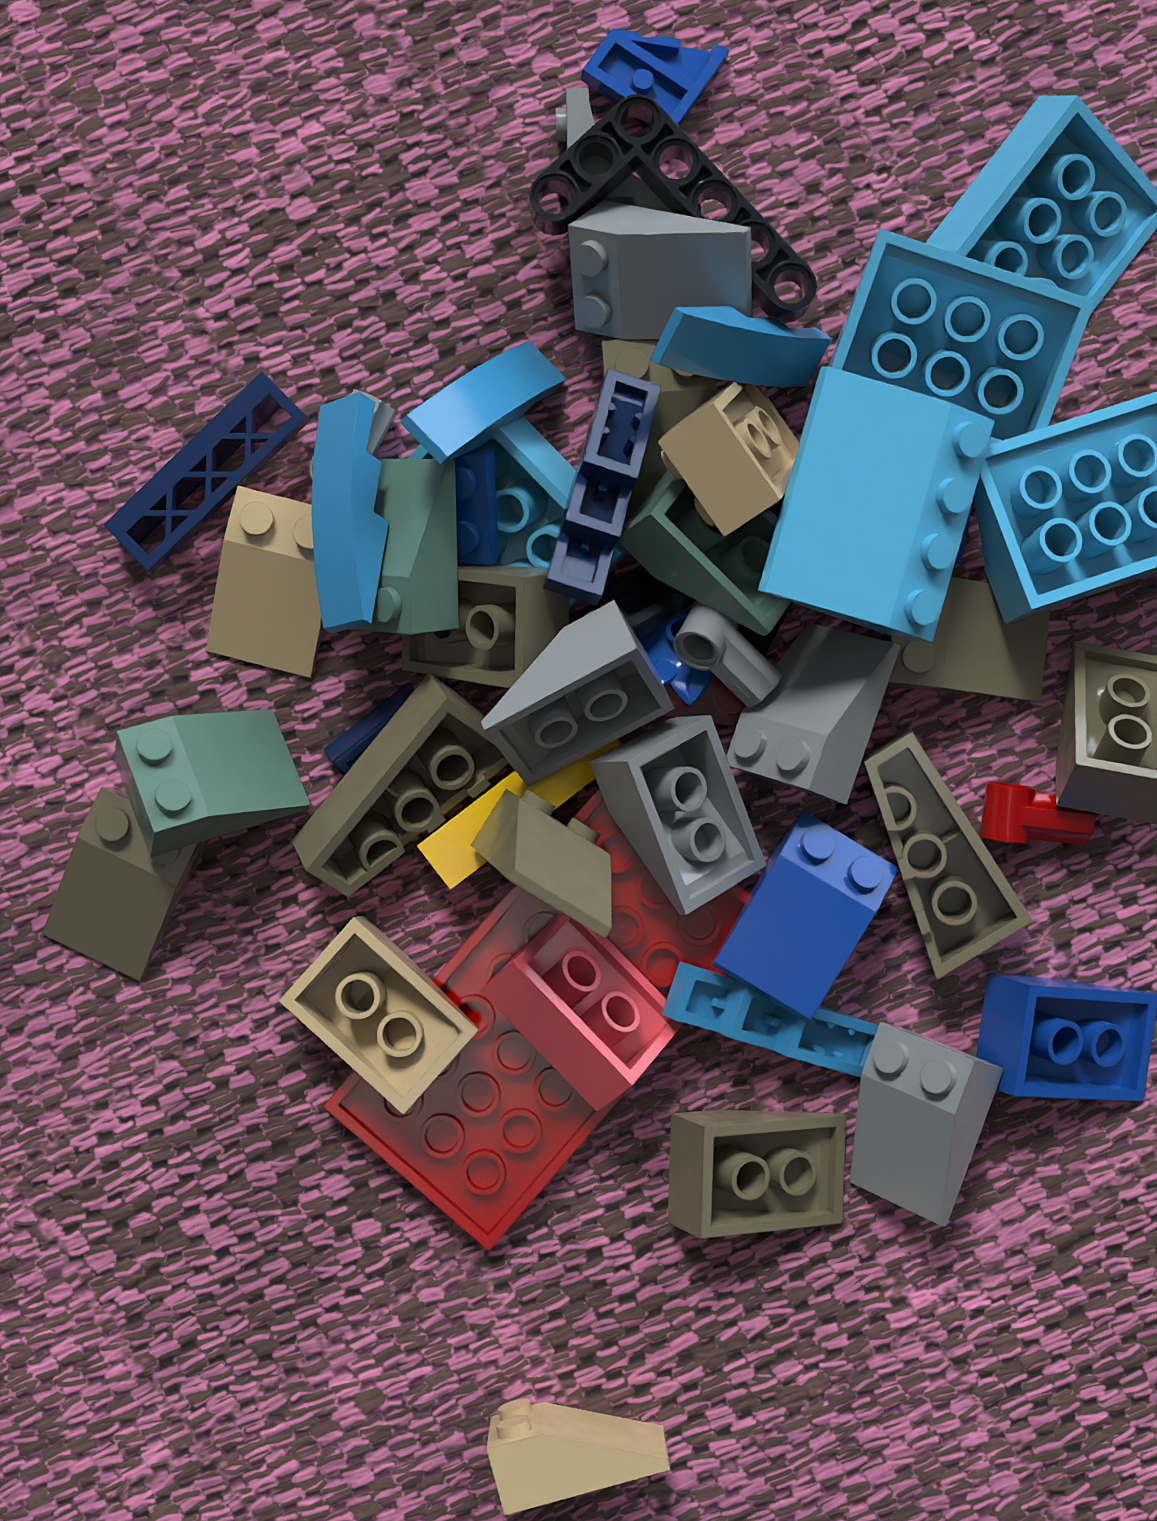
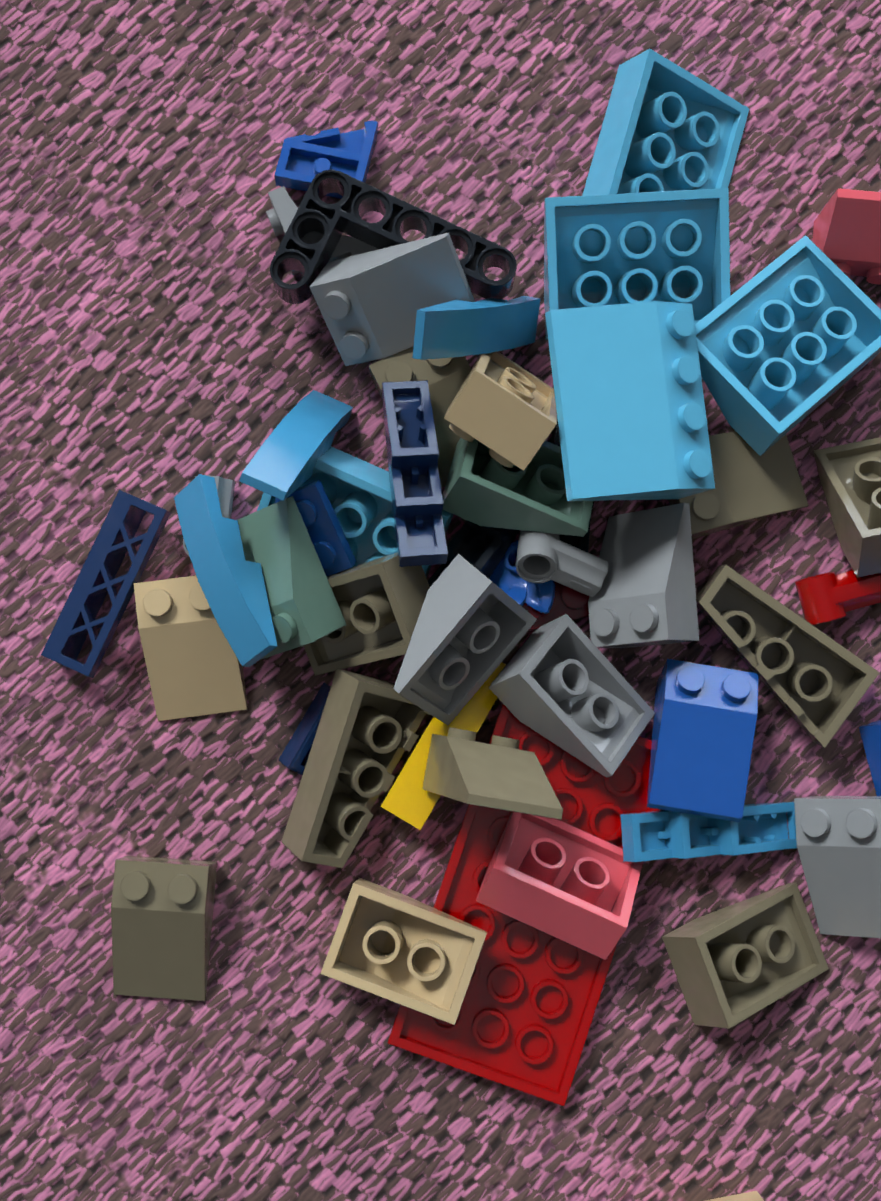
camera: 20 degrees left, 5 degrees down
(207, 776) = (195, 818): sand green slope -> none

